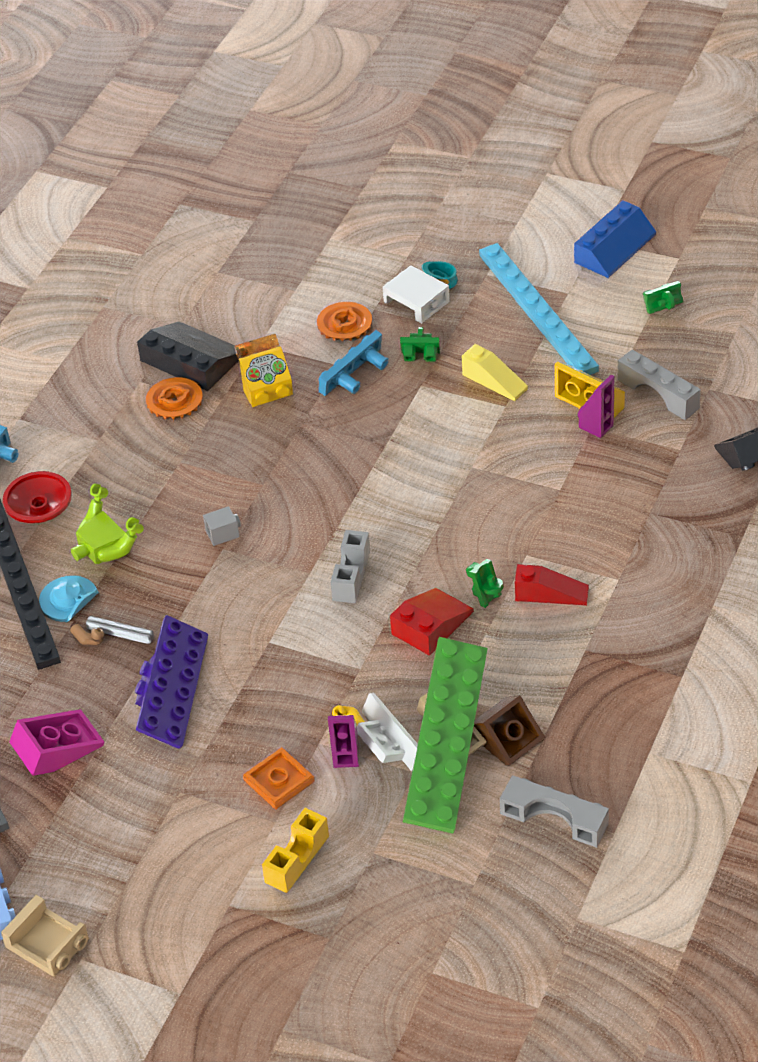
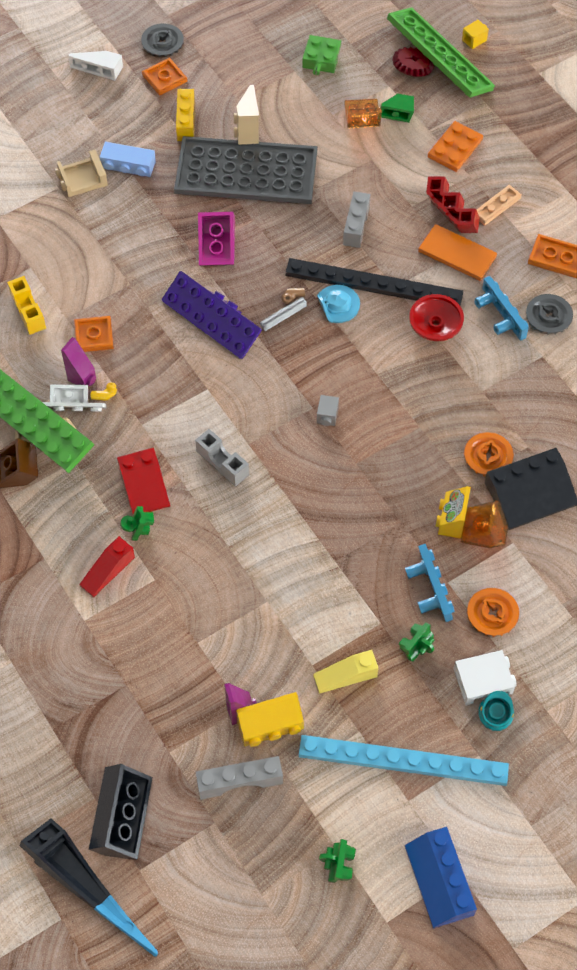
camera: 120 degrees right, 15 degrees up
(100, 536) = (372, 339): lime torso -> none

